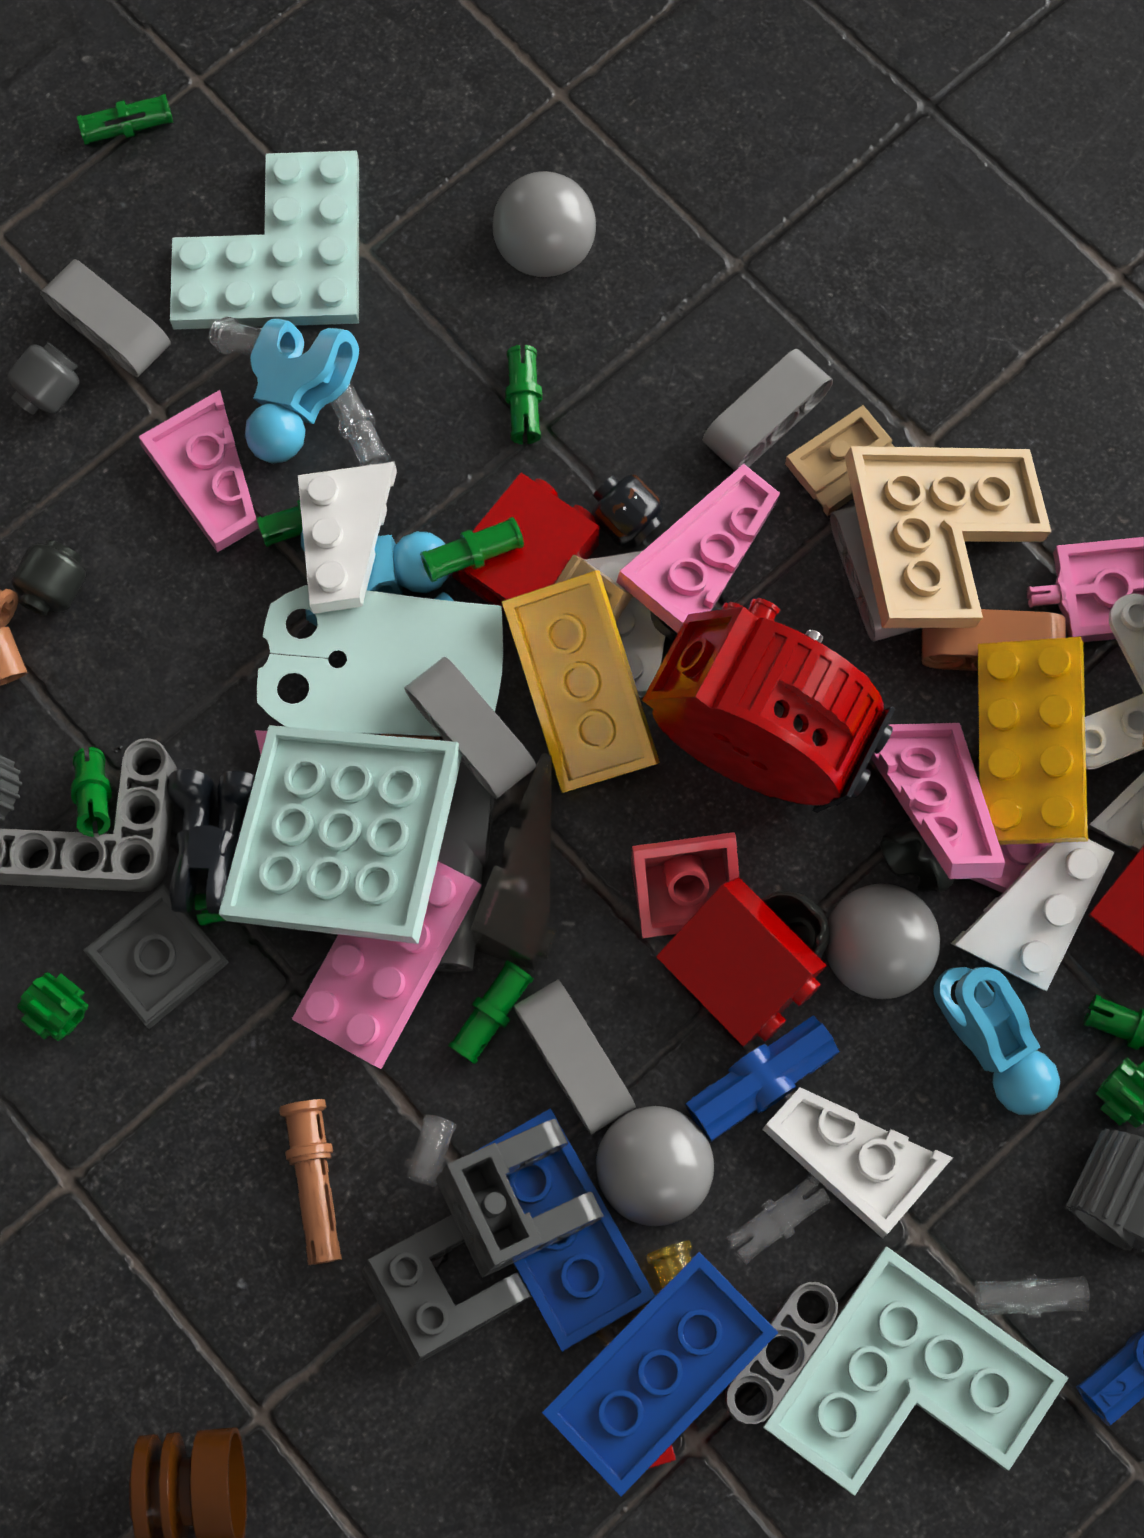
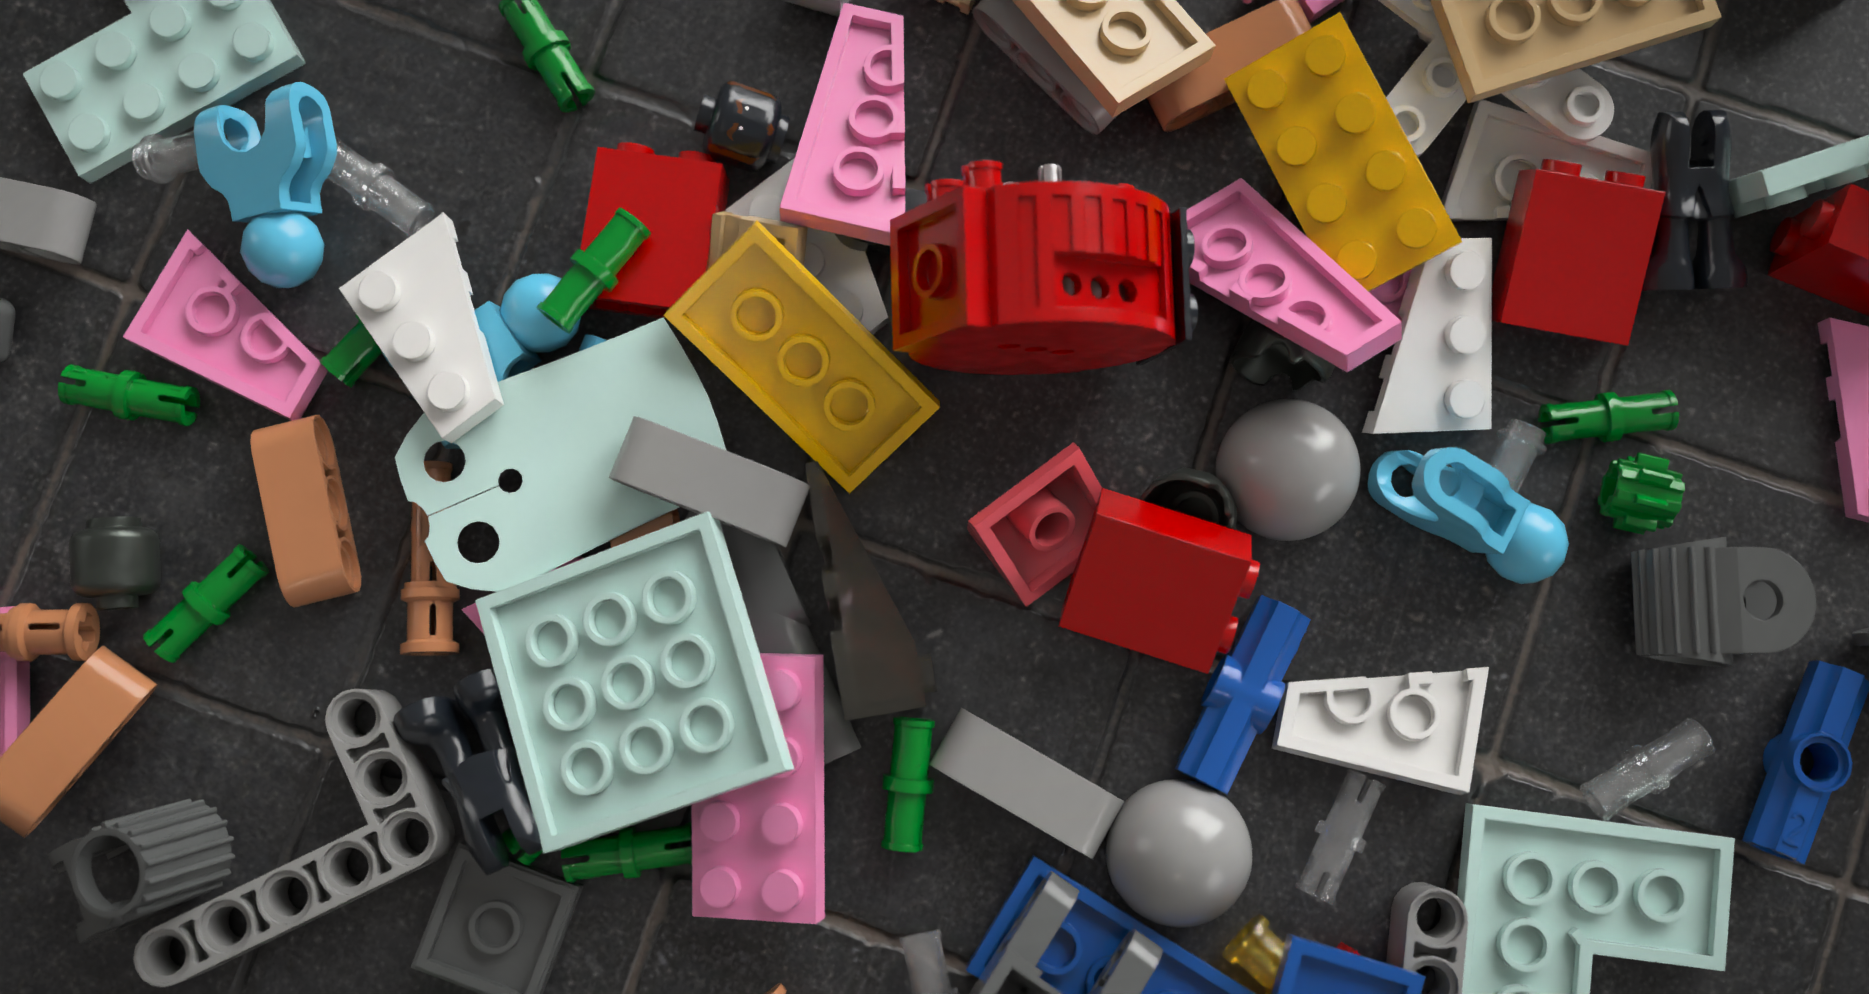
camera: 30 degrees left, 10 degrees up
(89, 637) = (205, 603): none -> green pin
(91, 791) = (313, 787): green pin -> none
(119, 476) = (129, 395): none -> green pin
(190, 611) = (305, 511): none -> nougat beam
(239, 708) = (428, 595): none -> nougat pin
(271, 954) = (628, 853): none -> green pin
(1055, 1017) = (1517, 451): none -> clear pin

